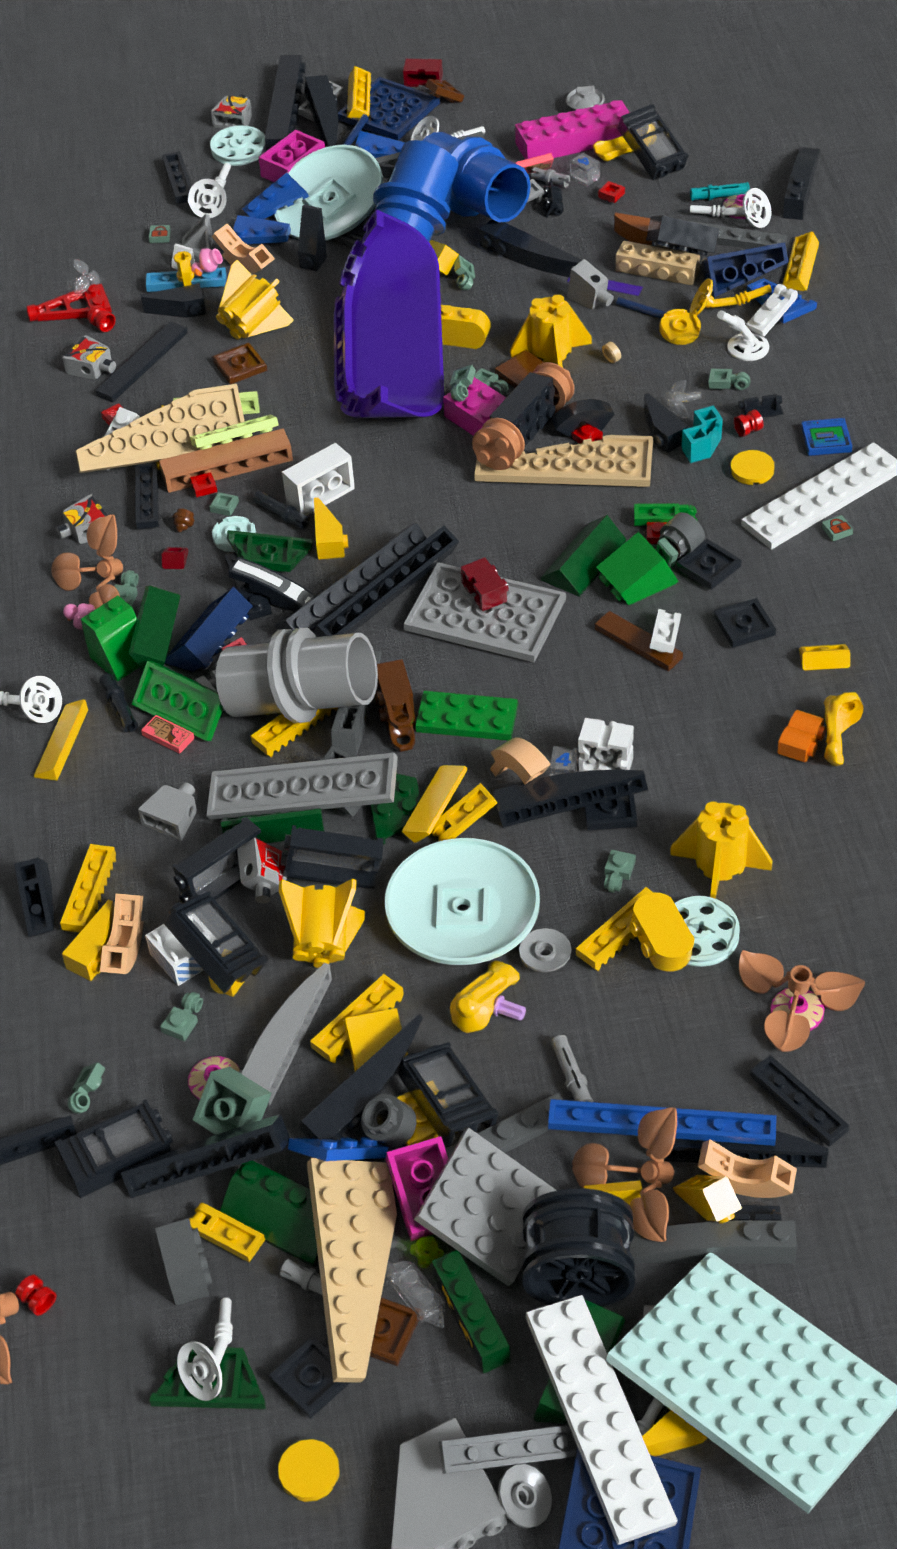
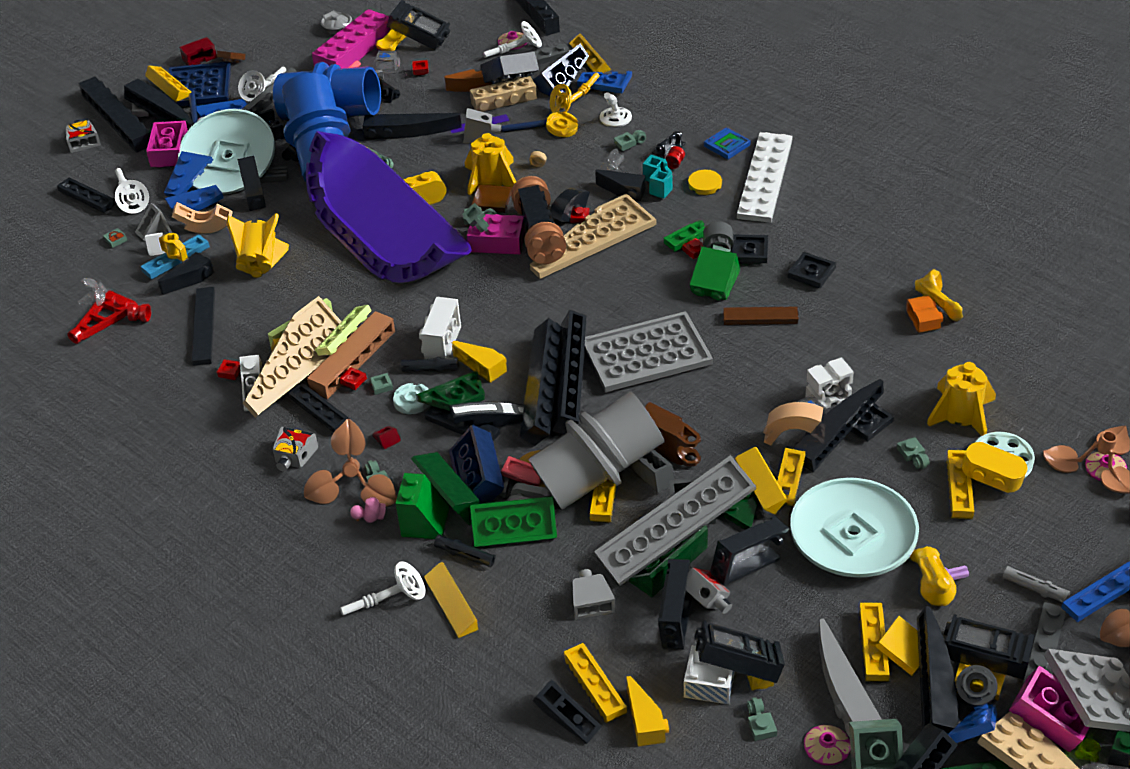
camera: 40 degrees left, 5 degrees down
(88, 359) = (163, 343): light grey torso -> none
(125, 937) = (673, 706): light nougat arch -> none
(167, 734) = (523, 550): tile -> none
(183, 519) = (366, 408): reddish brown plate -> none
(208, 261) = (186, 232): bright pink animal -> none
(238, 145) = (108, 155): light aqua wedge -> none
(239, 363) = (281, 290): reddish brown tile -> none
(321, 920) = (790, 595): yellow brick -> none
(467, 715) = (717, 416): green plate -> none
(483, 581) = (634, 331): dark red brick -> none
(545, 942) = (935, 524): light grey dish -> none
(578, 562) = (666, 285): dark green slope -> none
(665, 631) = (775, 298): white plate -> none
(718, 191) = (486, 39): teal pin -> none
(772, 310) = (612, 85): white plate -> none
(825, 657) = (878, 264): yellow slope -> none
(837, 528) = (796, 190): sand green tile -> none

